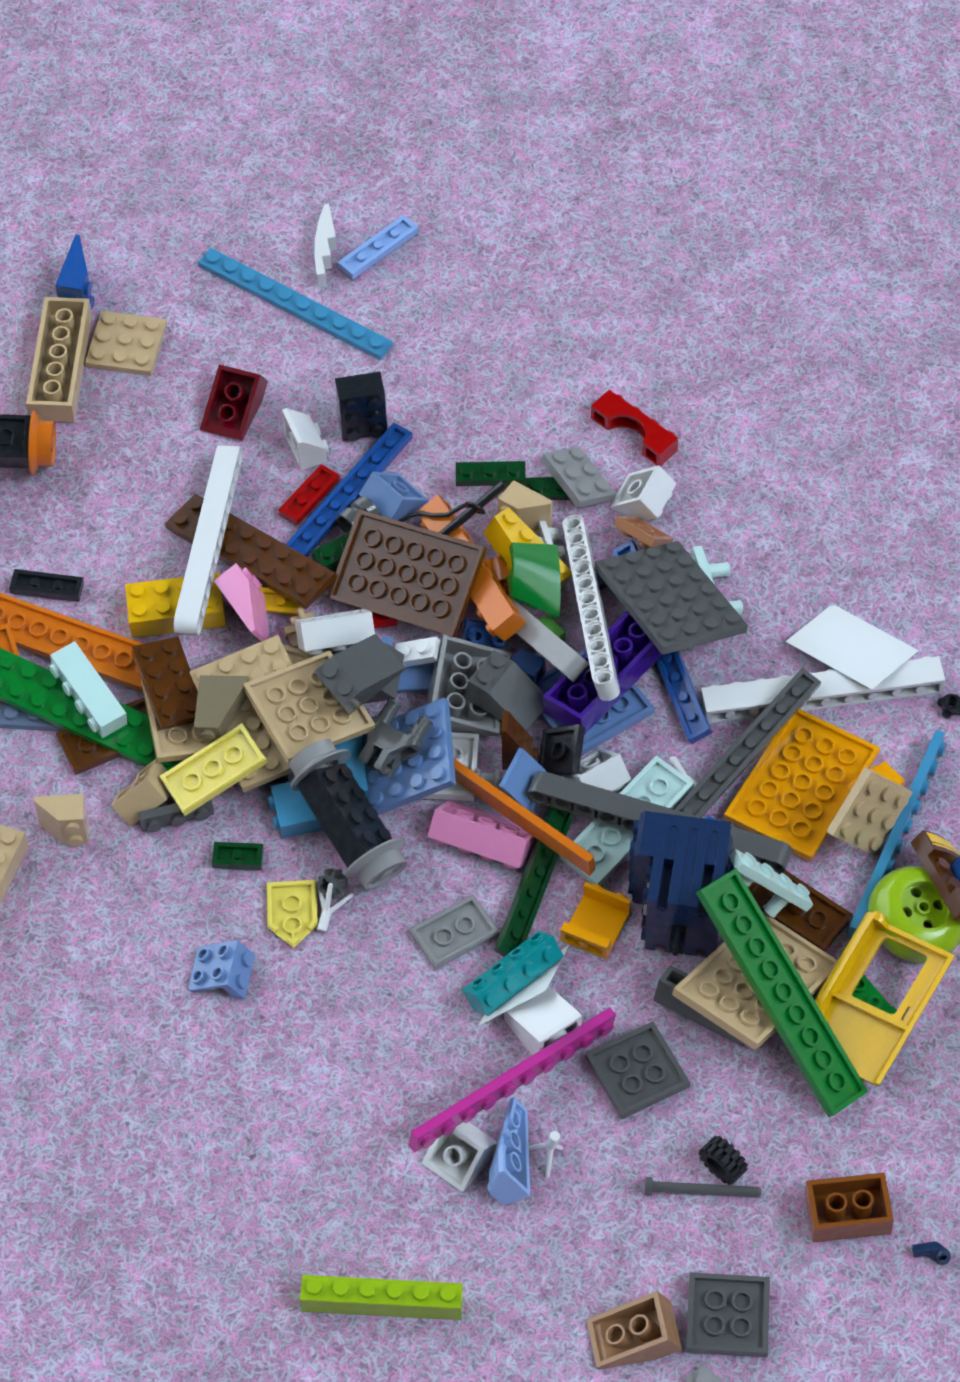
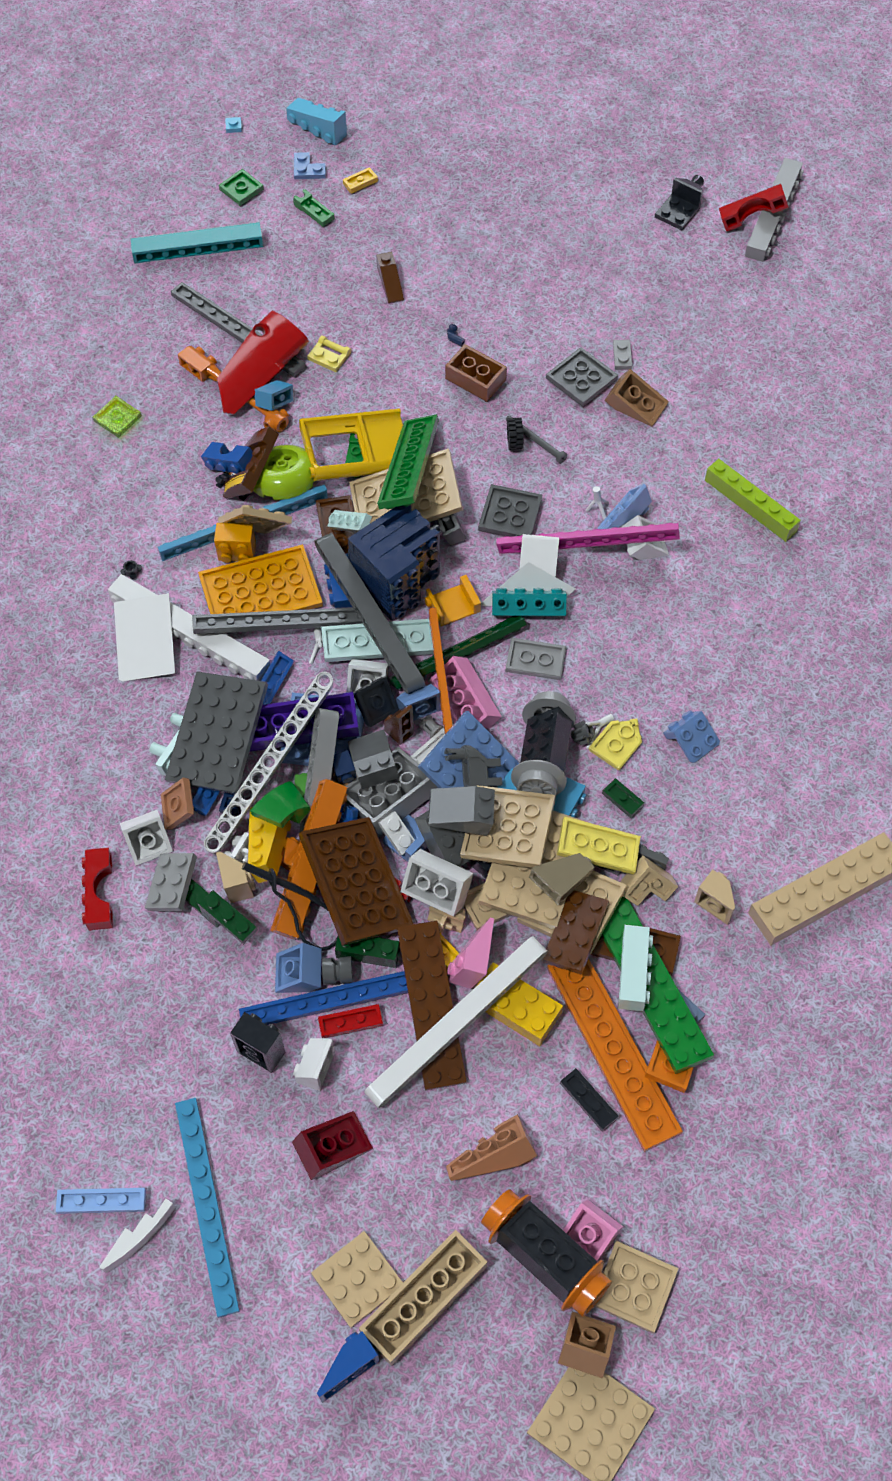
camera: 140 degrees left, 5 degrees up
(89, 496) = (503, 1150): none -> nougat wedge

